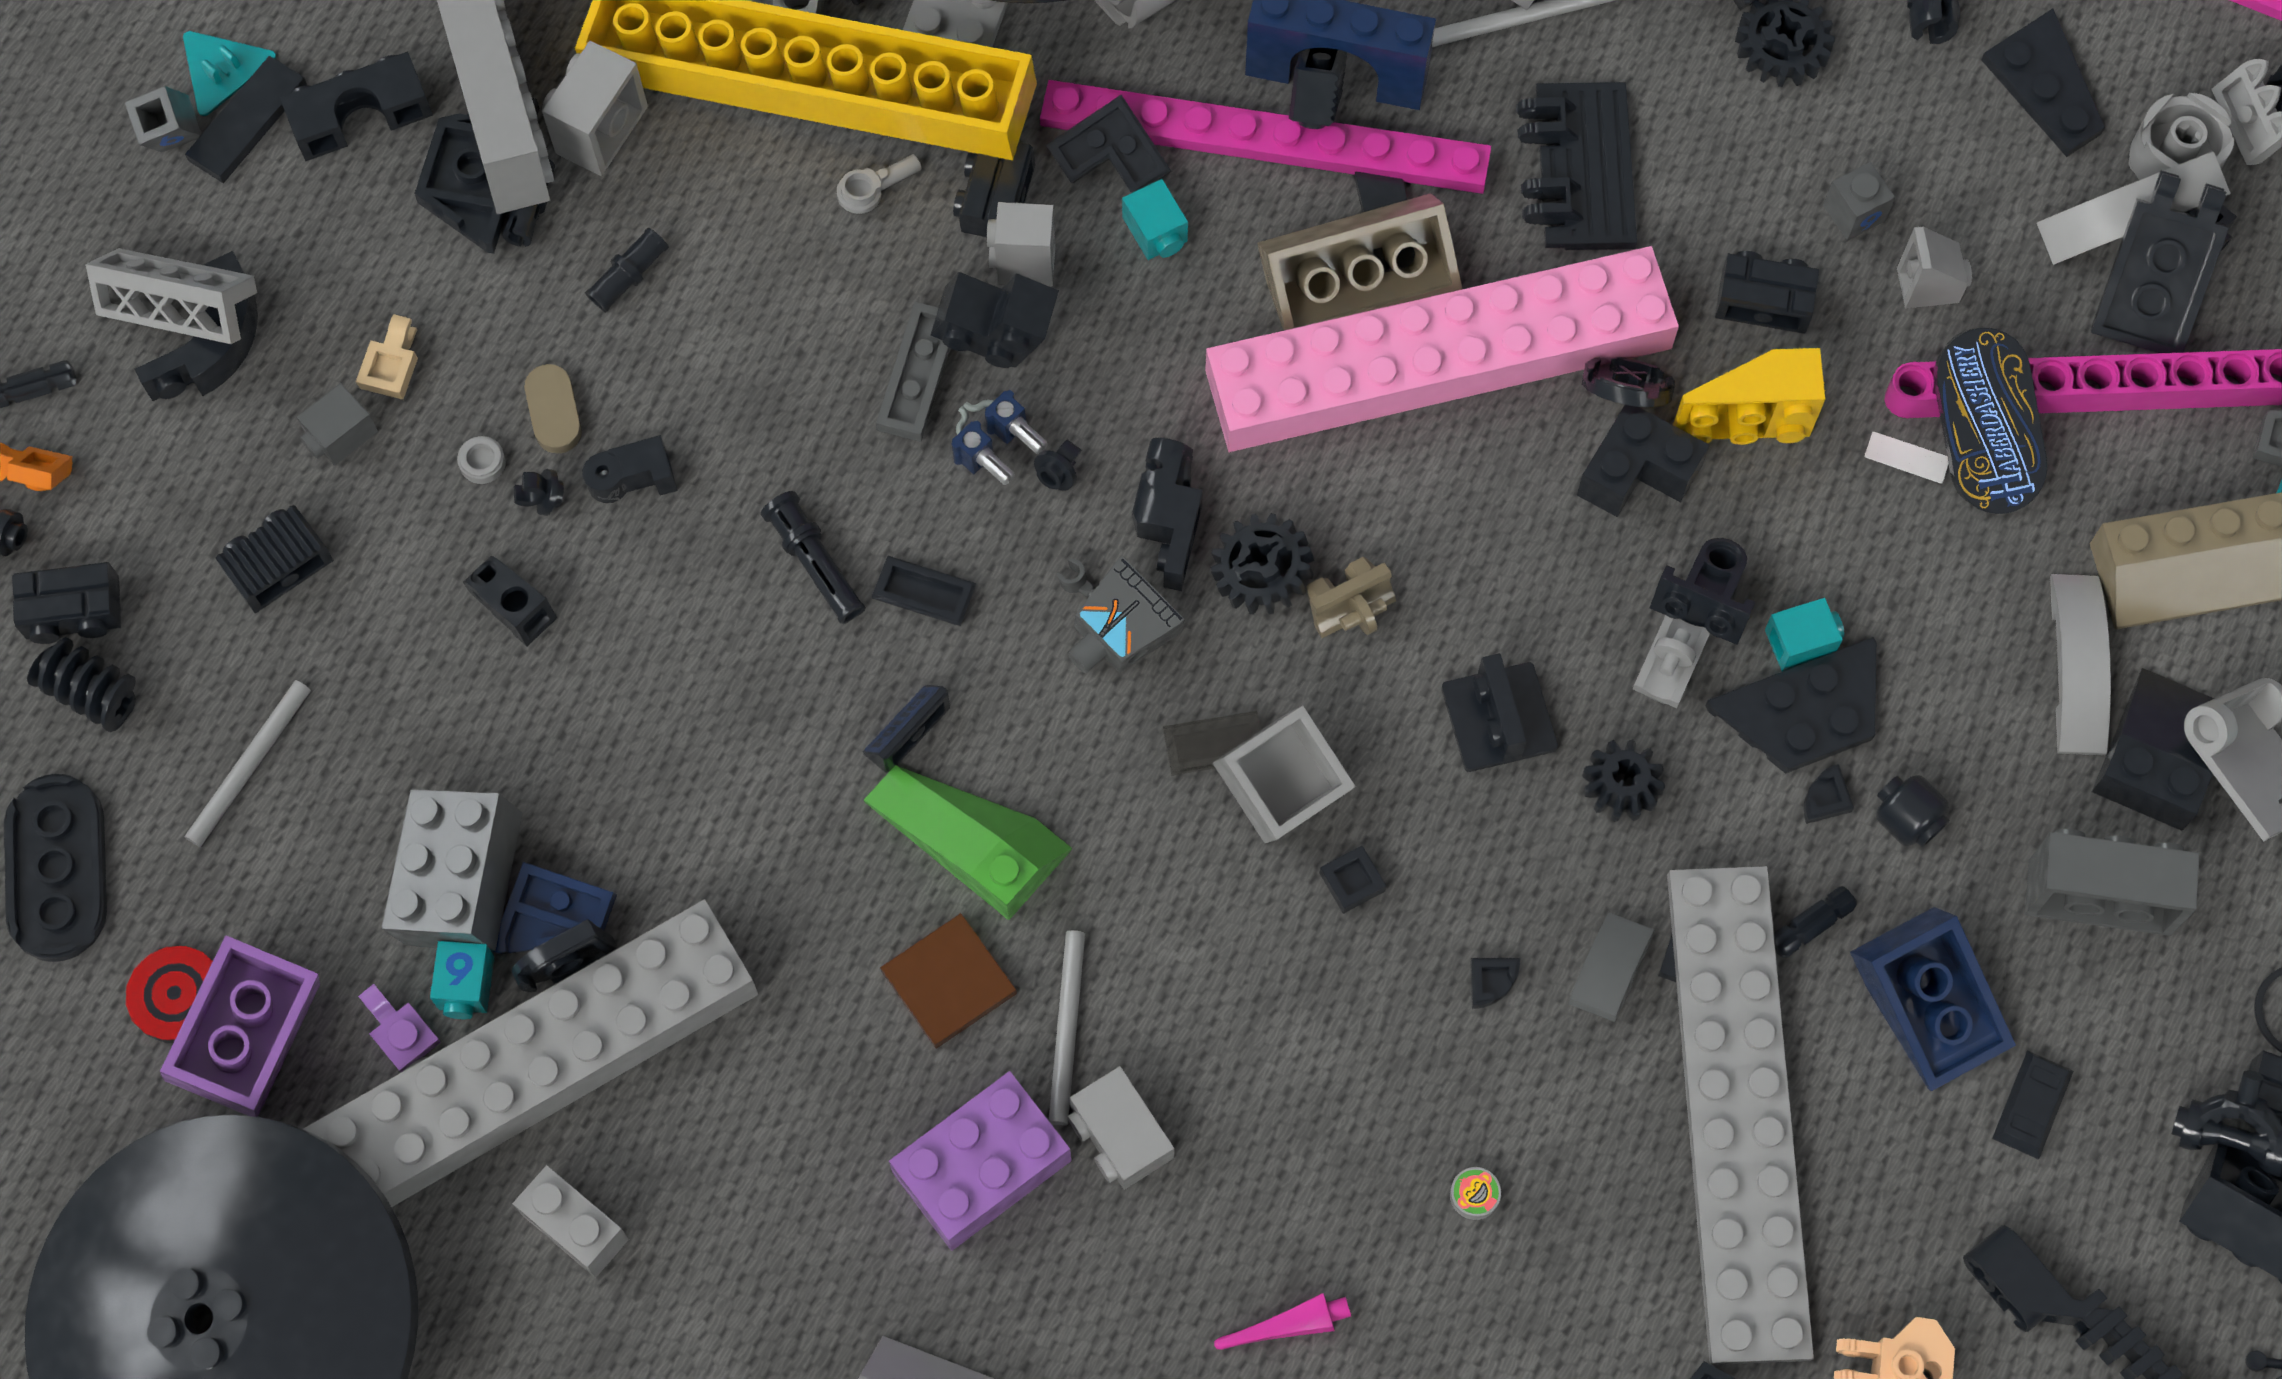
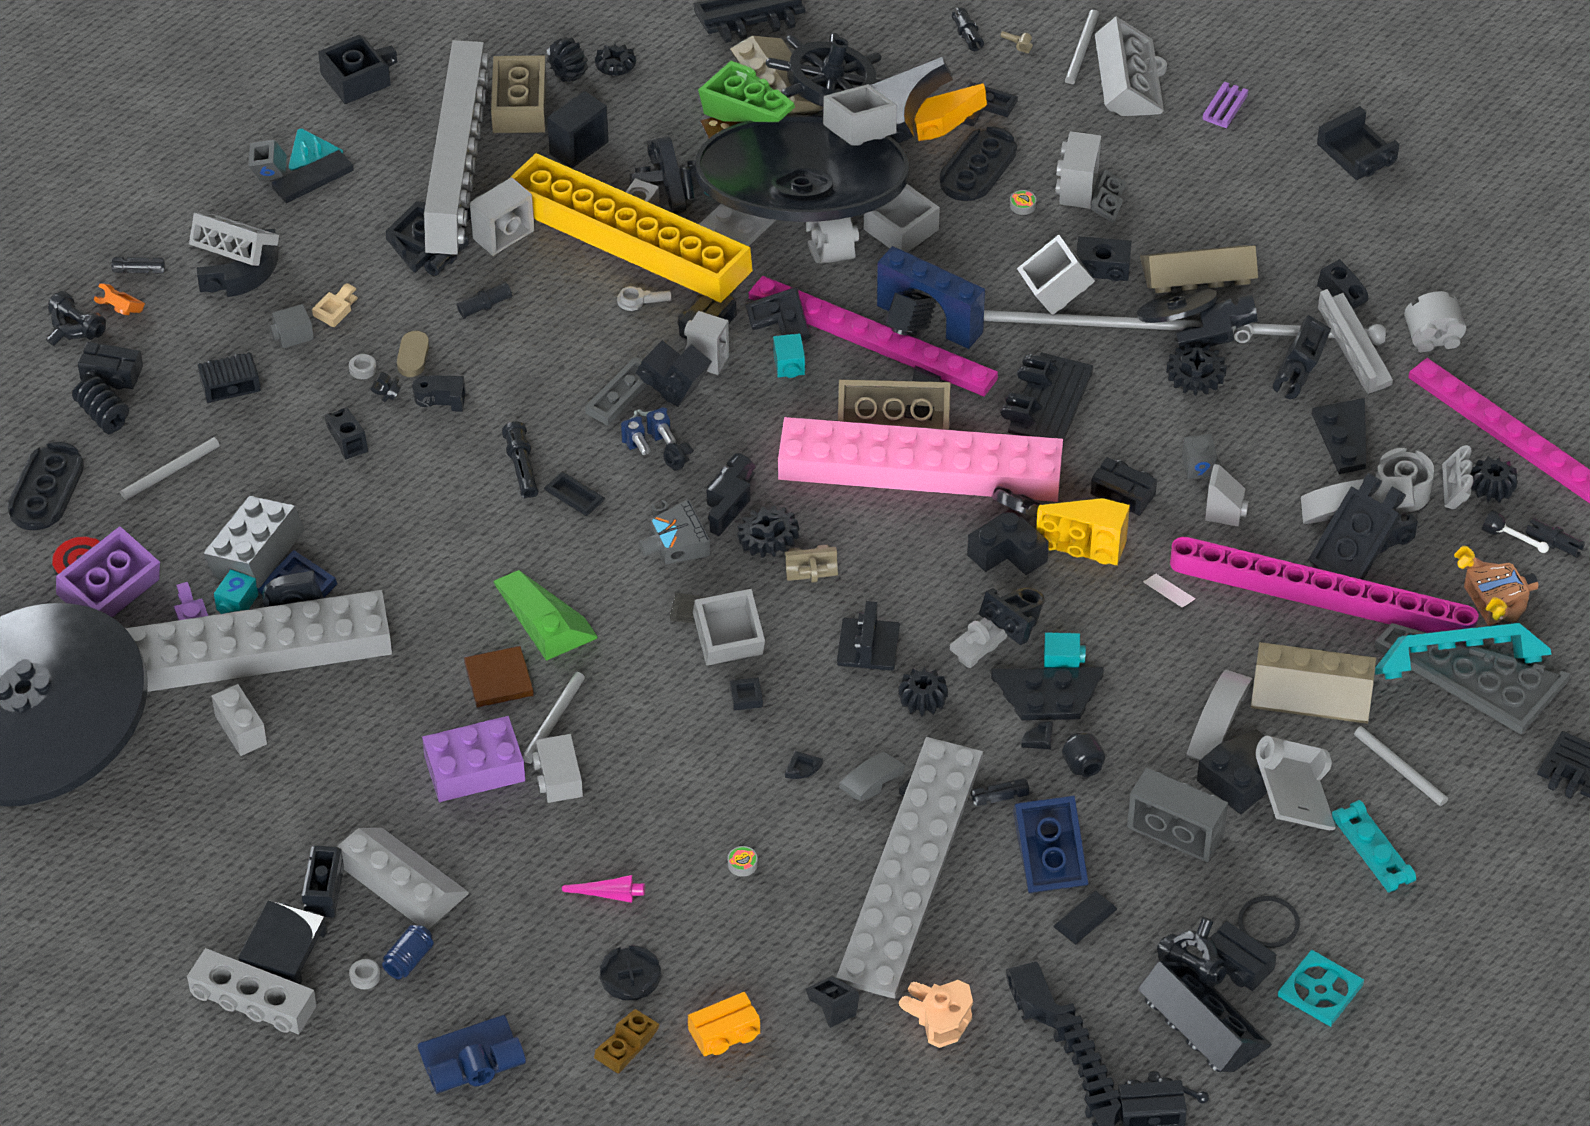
camera: 20 degrees right, 20 degrees down
(321, 109) = (355, 180): black arch -> none
(908, 727) = (535, 553): black slope -> none
(1990, 420) = (1219, 577): black tile -> none

